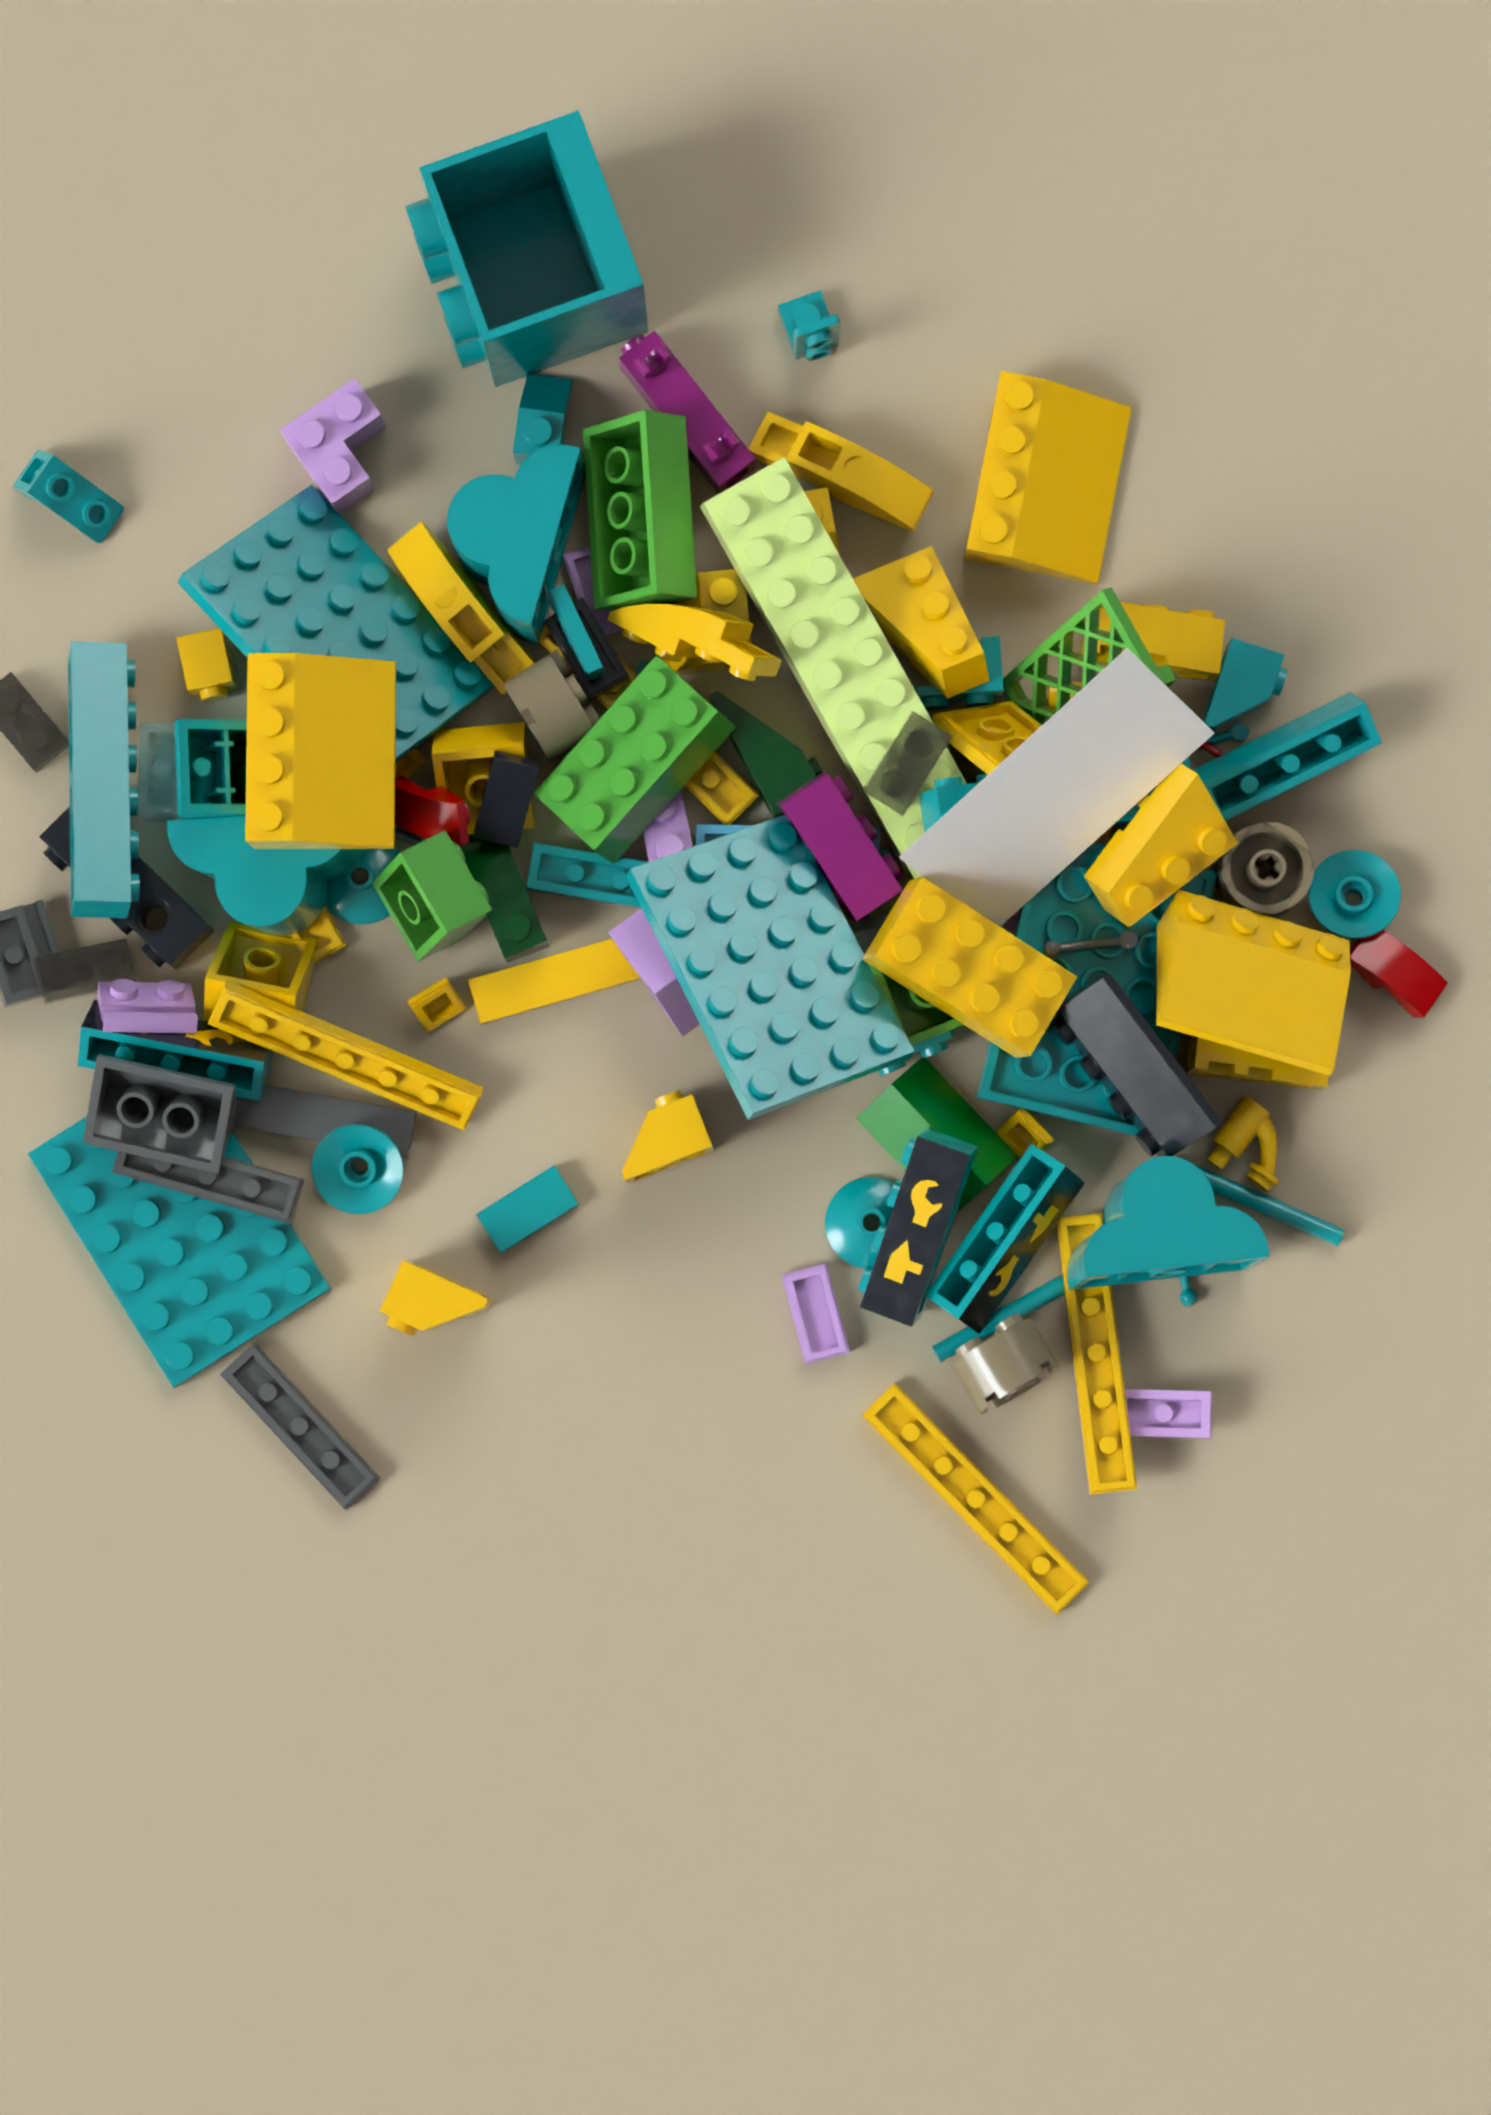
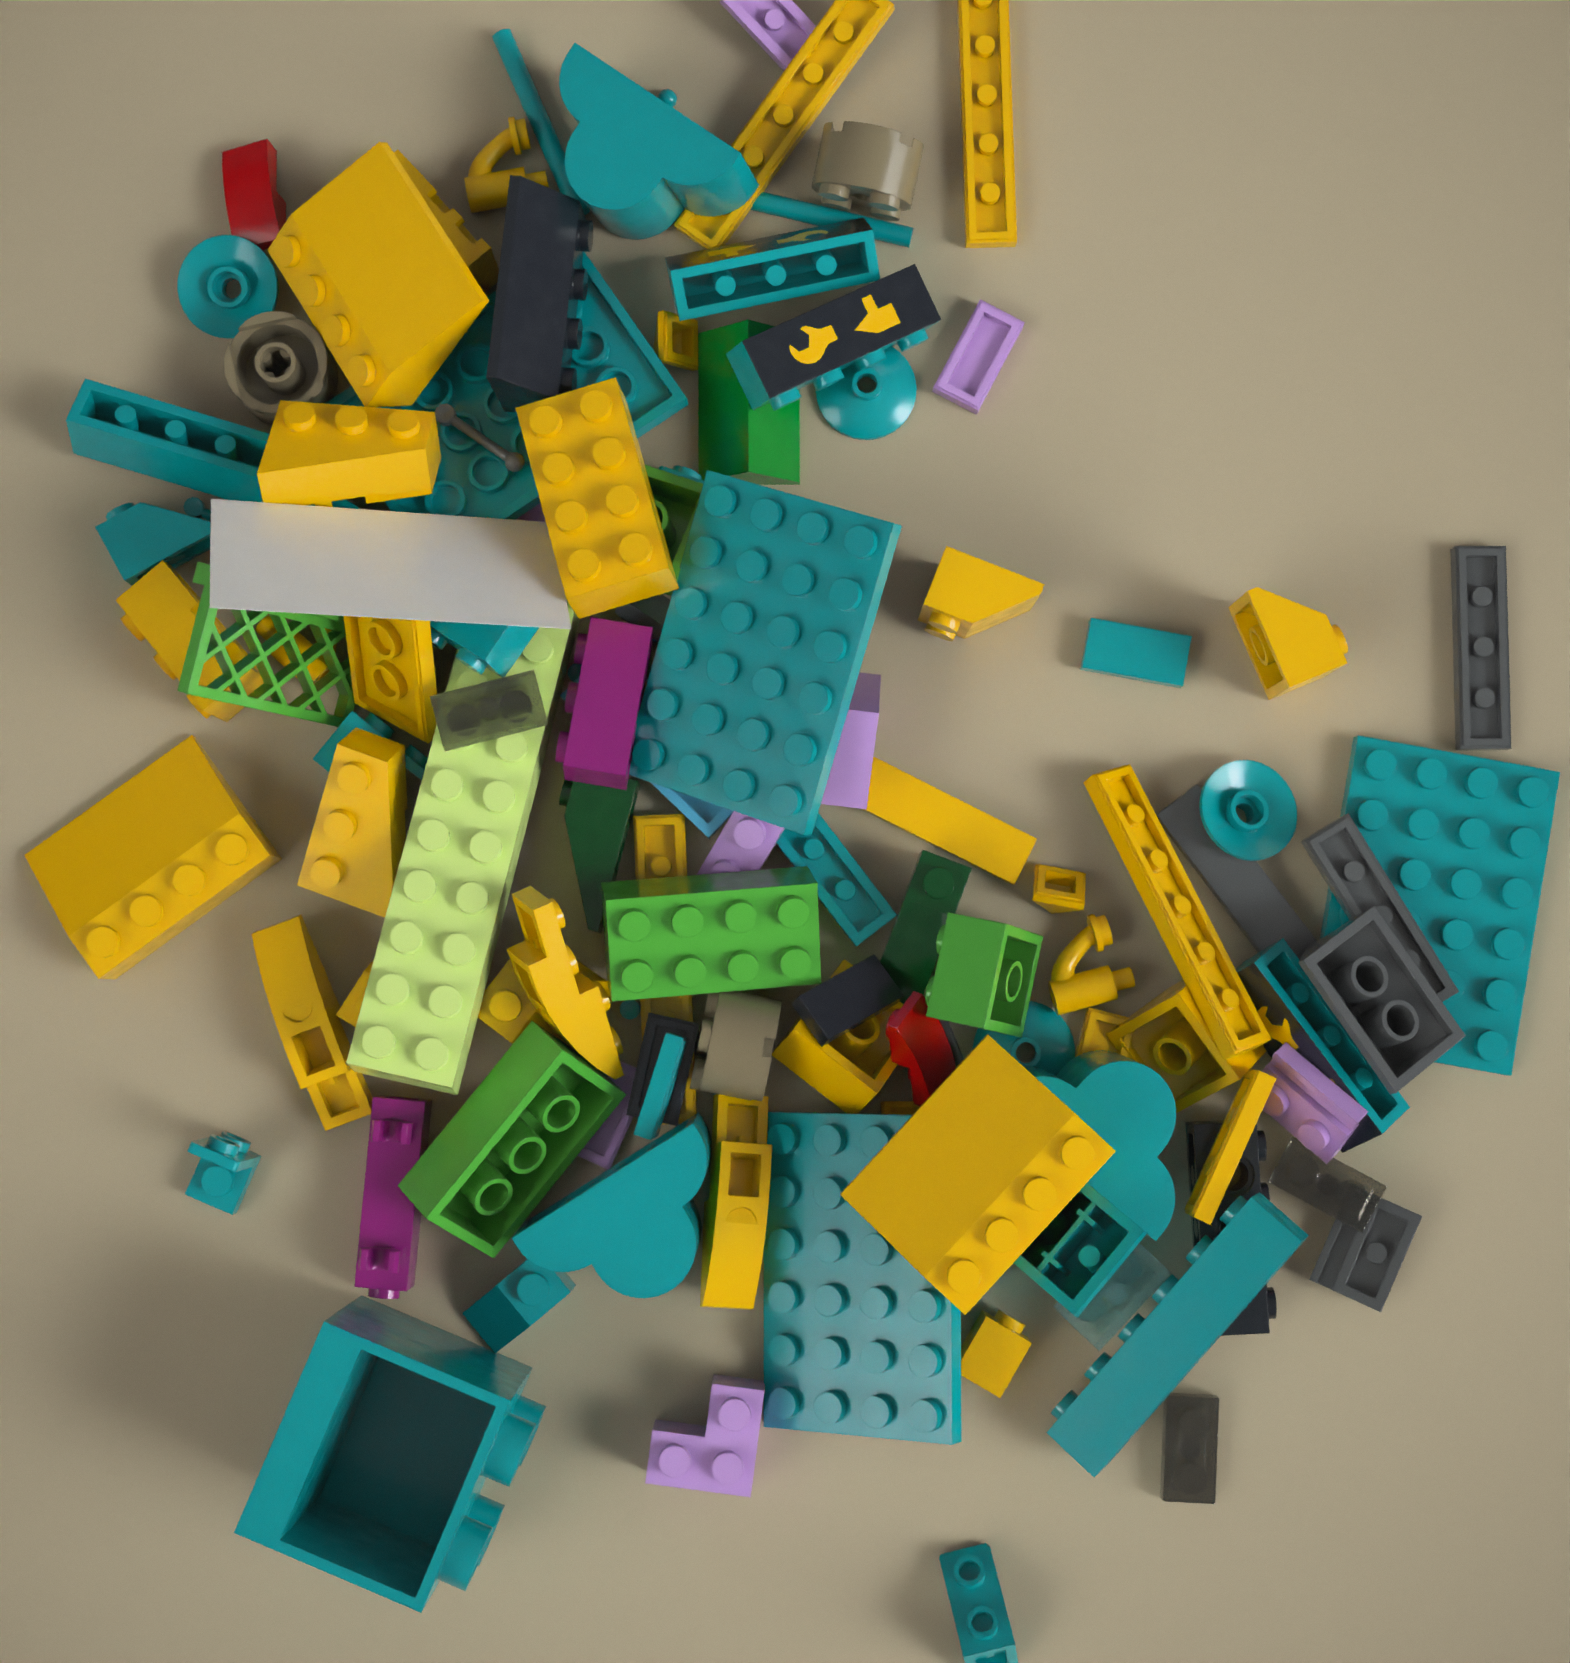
camera: 140 degrees left, 0 degrees up
(173, 928) = (1229, 1145): none -> yellow tile
(356, 958) = (1091, 987): none -> yellow plant

